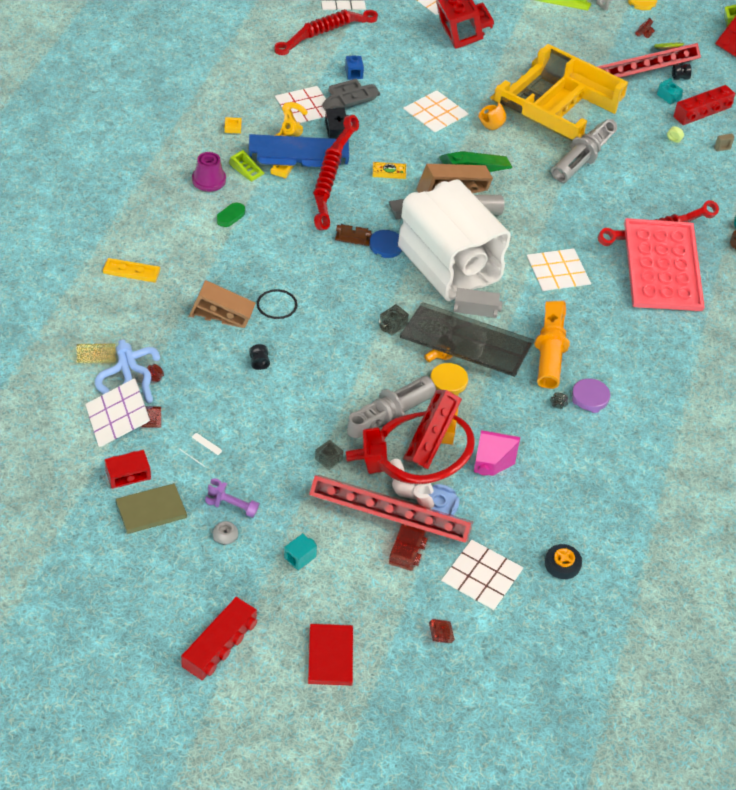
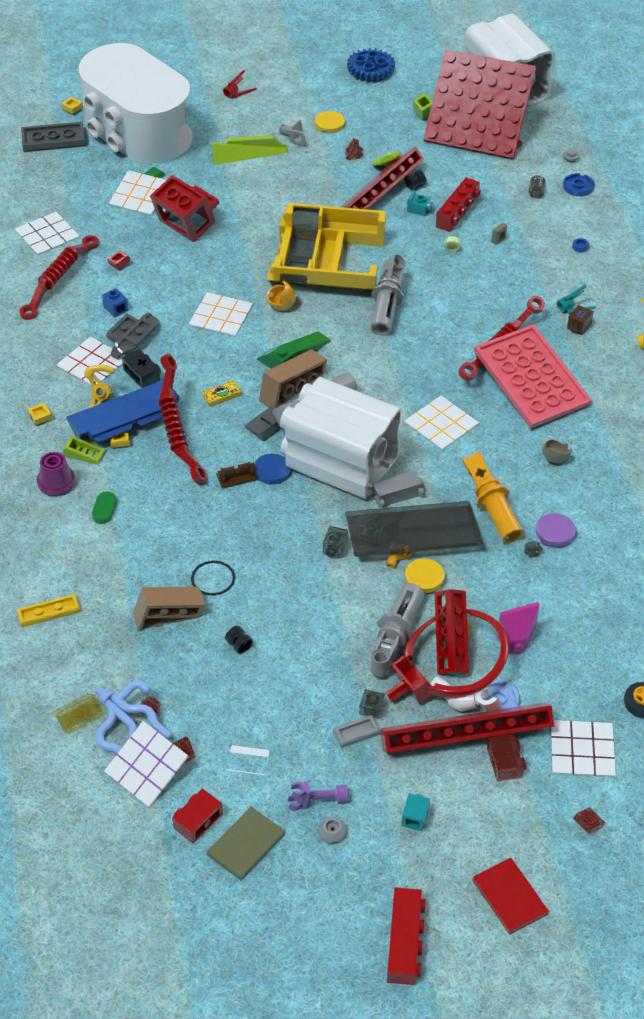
camera: 25 degrees left, 0 degrees up
(301, 469) = (356, 731): none -> light grey tile
(382, 37) = (119, 259): none -> red tile
(639, 333) = (556, 451): none -> dark tan hair

